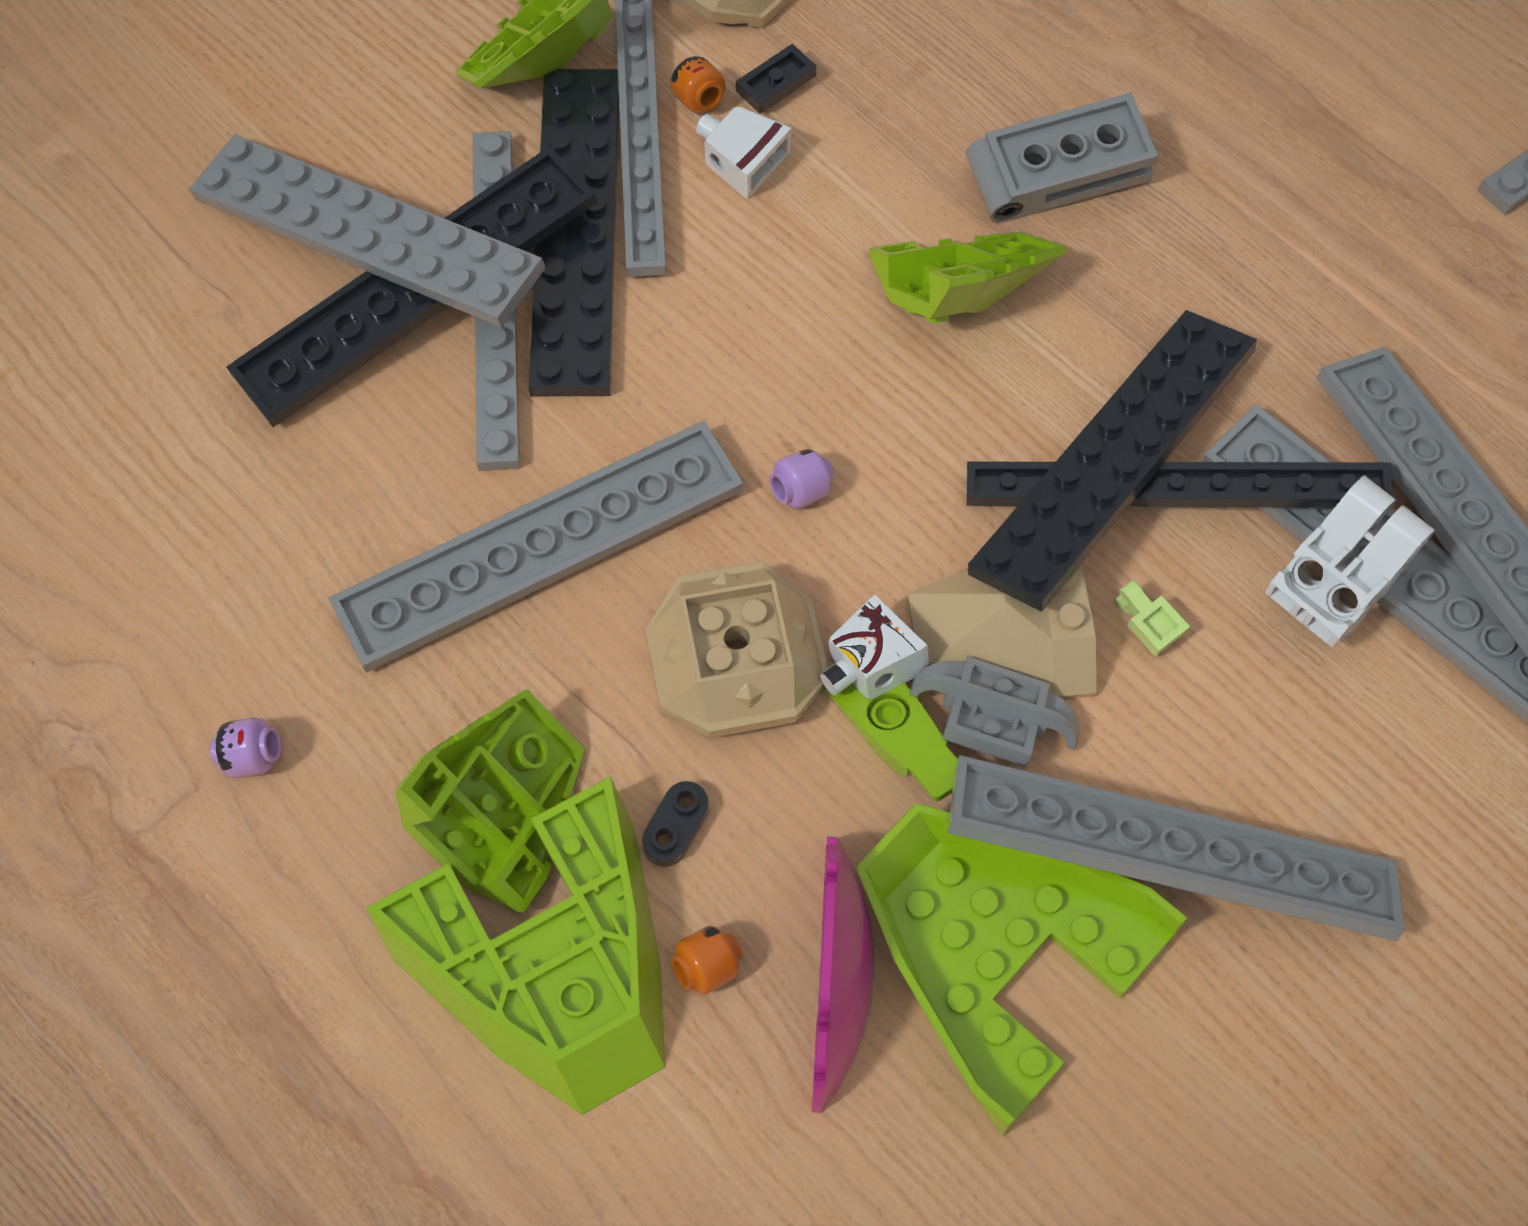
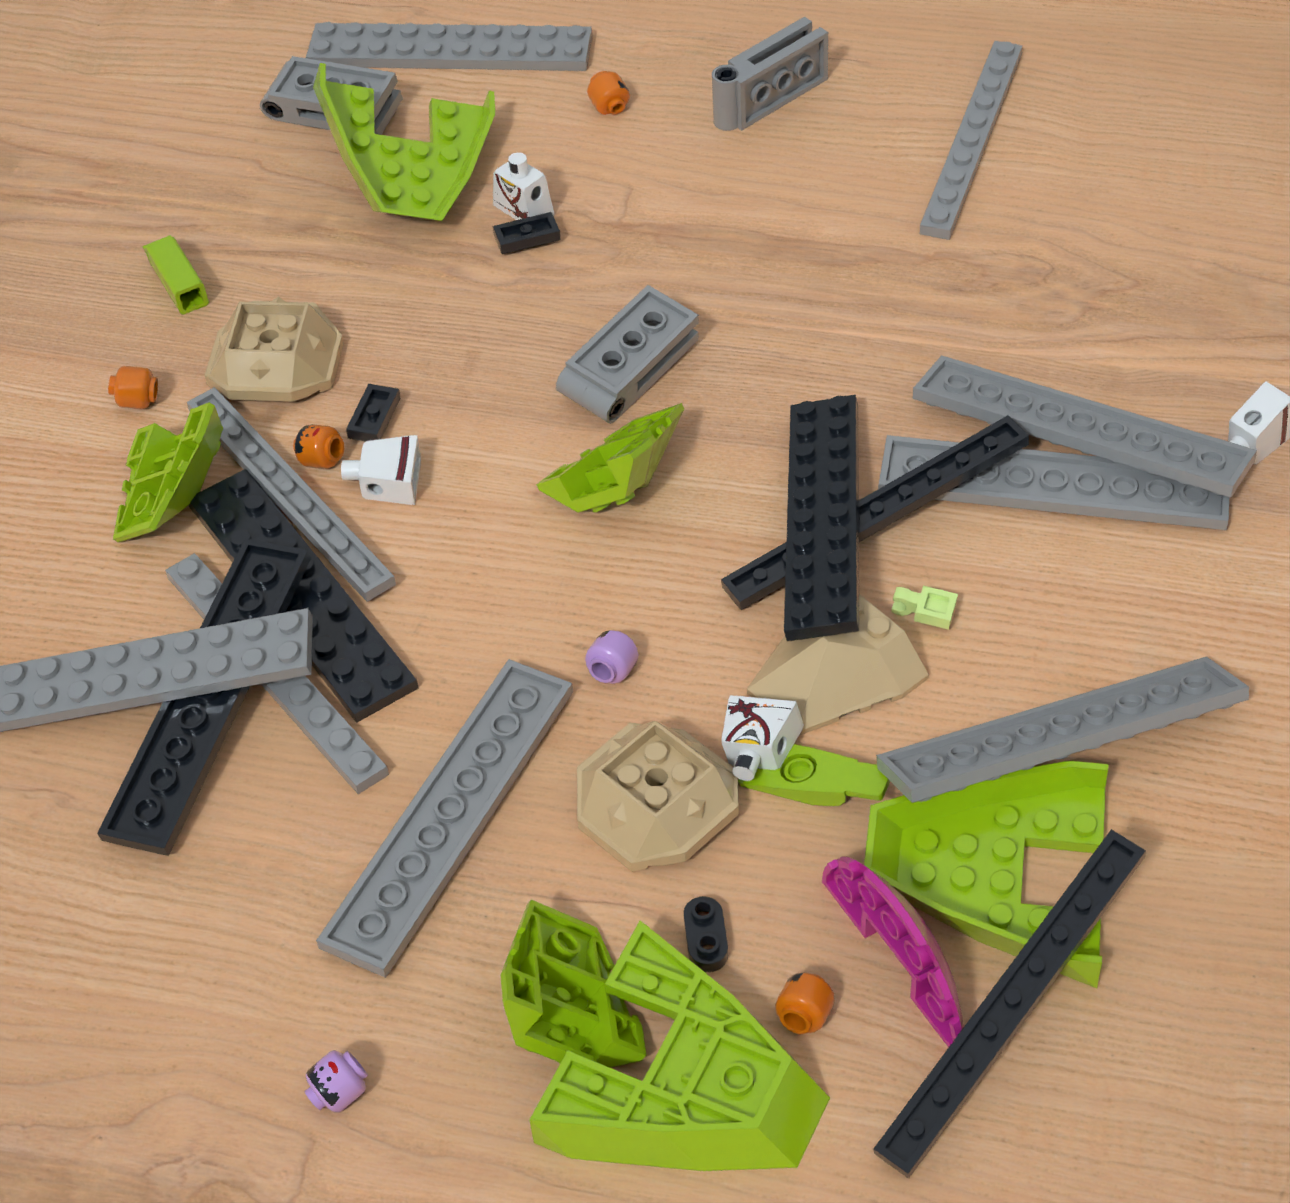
camera: 30 degrees left, 15 degrees down
(892, 1102) = (1008, 1004): none -> black plate
(996, 708) = (870, 720): light grey plate -> none
(1334, 548) = (1014, 483): white connector -> none

